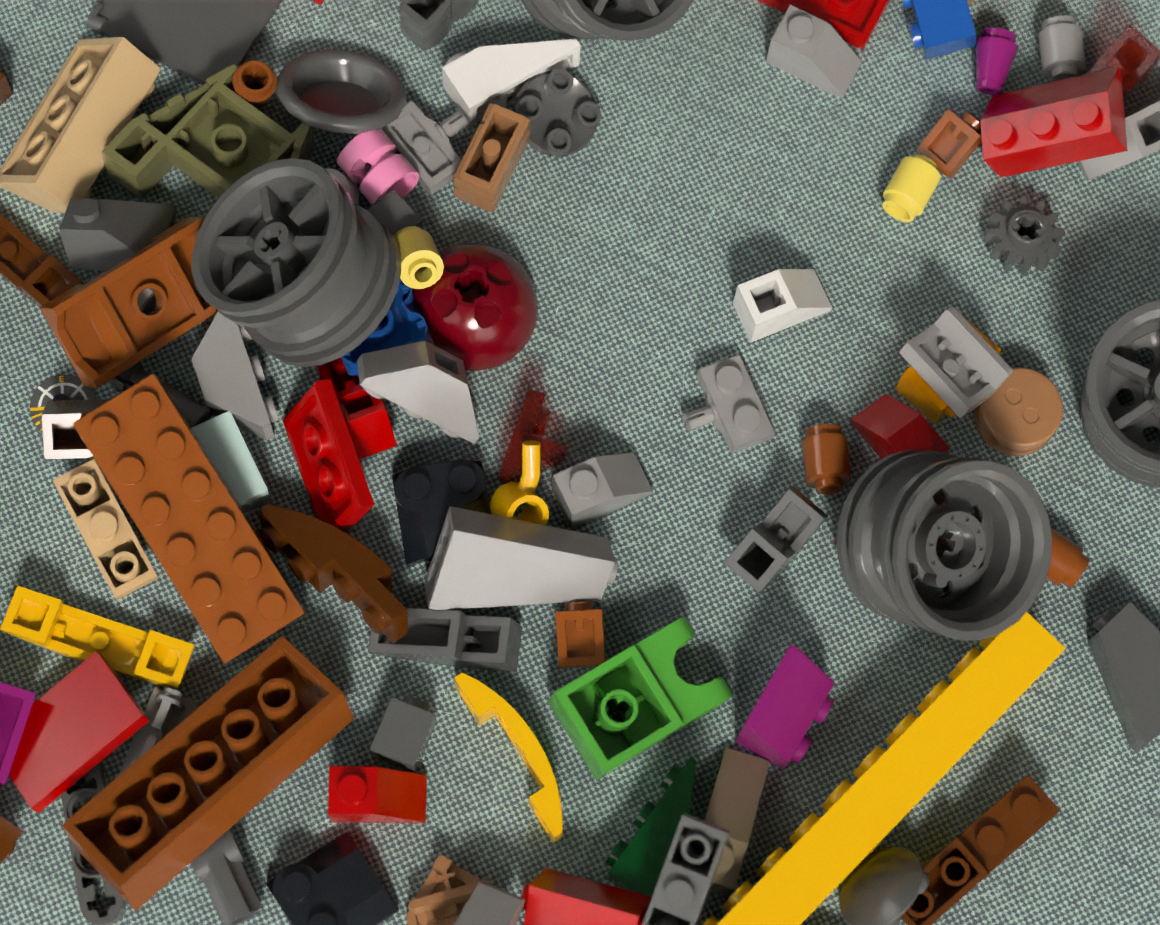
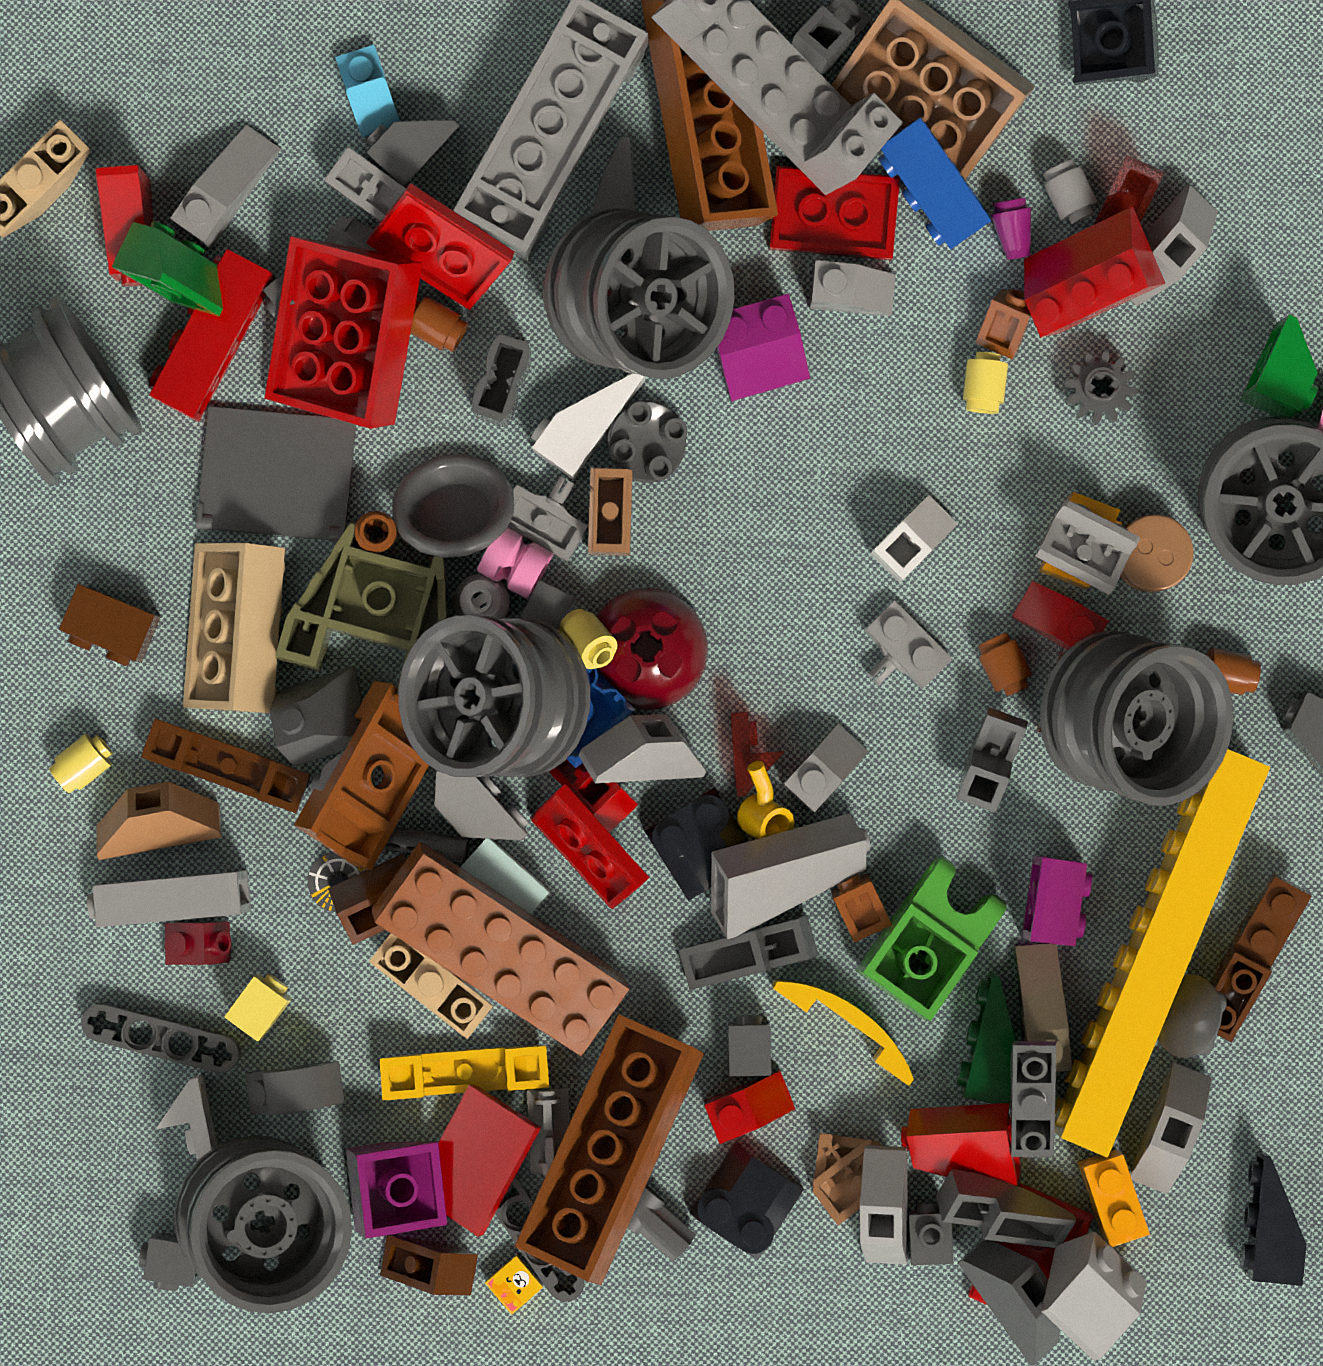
camera: 15 degrees left, 15 degrees up
(47, 884) = (514, 1284): none -> yellow tile
(332, 557) = (620, 926): reddish brown slope -> none
(703, 70) = (762, 349): none -> magenta slope

